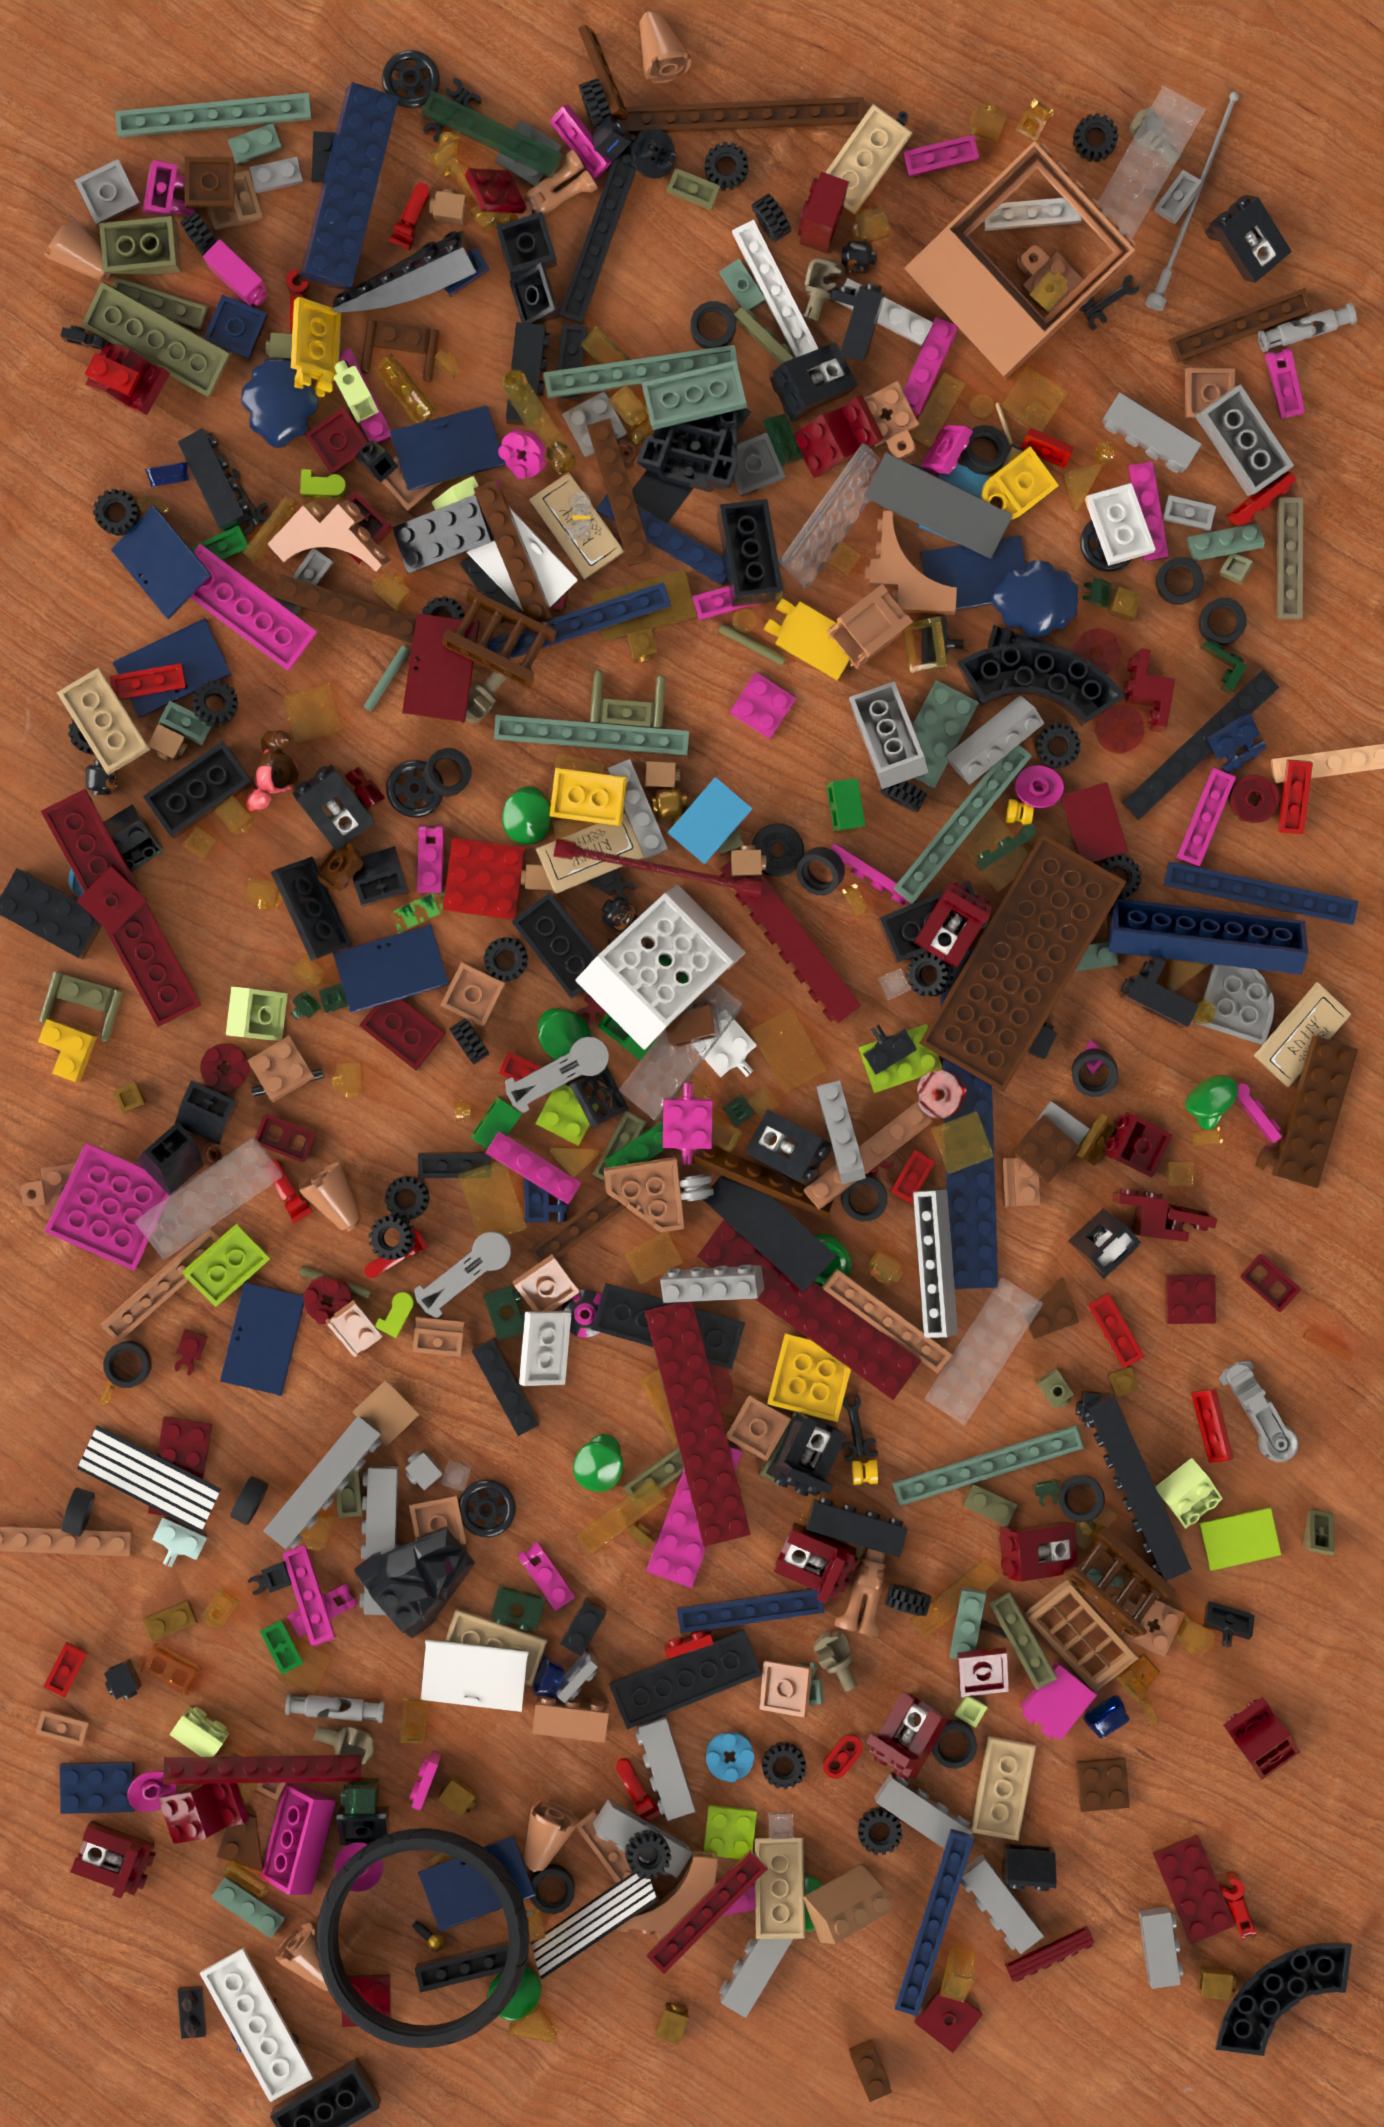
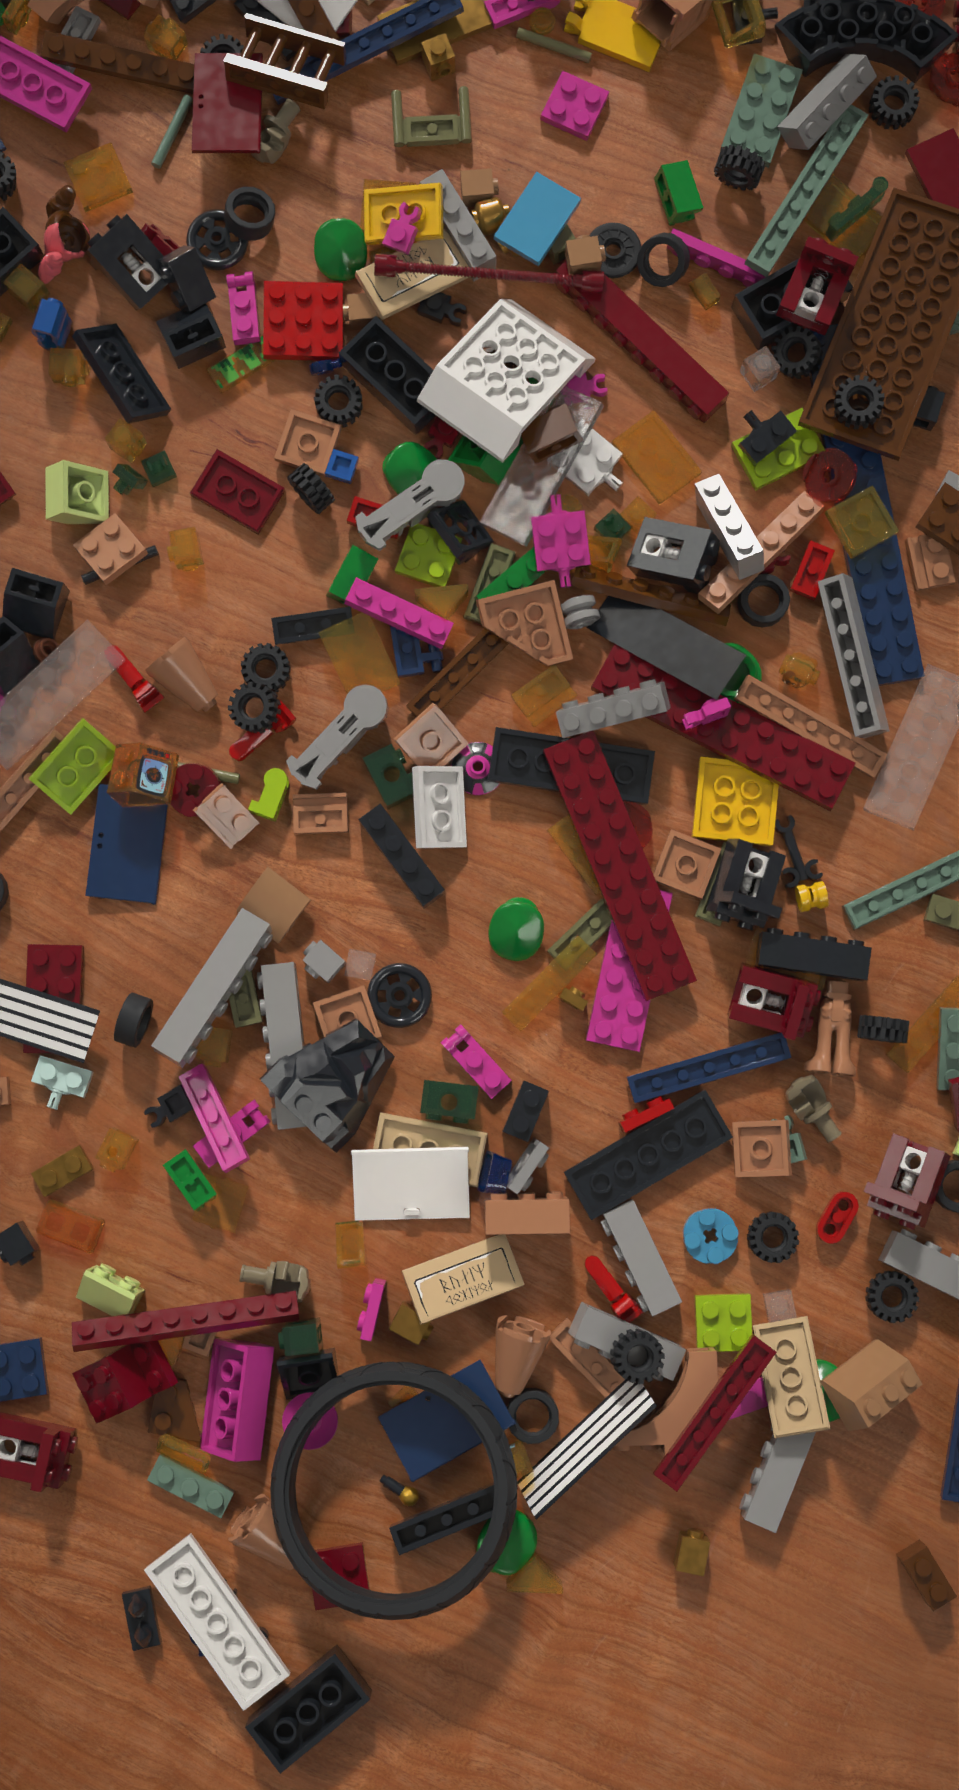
camera: 10 degrees left, 5 degrees down
(146, 1790) = (58, 1376): dark pink dish -> none
(191, 1348) = (49, 863): dark red plate -> none
(214, 1077) = (59, 545): dark red plate -> none
(254, 855) = (51, 324): none -> blue brick
(282, 1147) = (128, 614): dark red piece -> none
(284, 1284) = (142, 775): none -> clear orange slope
(324, 1707) = (254, 1242): light grey piece -> none
(339, 867) = (146, 324): reddish brown plate -> none
(382, 830) = (186, 278): none -> black brick
(392, 971) = (217, 430): dark blue container -> none
(462, 1111) = (313, 568): clear yellow plate -> none
(496, 925) = (324, 367): none -> clear blue piece
(500, 1020) = (342, 466): none -> blue plate
(507, 1765) = (462, 1278): none -> tan tile
(583, 817) = (401, 232): none -> dark pink plate
(591, 735) = (397, 158): sand green plate -> none
(618, 914) = (450, 333): black head -> none
(730, 977) = (586, 386): none -> dark pink plate
(798, 1298) = (709, 712): none -> dark pink plate
(888, 735) = (715, 104): light grey brick -> none
(974, 1052) = (864, 388): none -> black tyre
(1014, 810) = (864, 174): yellow wheel -> none
(1041, 779) = (881, 144): dark pink dish -> none

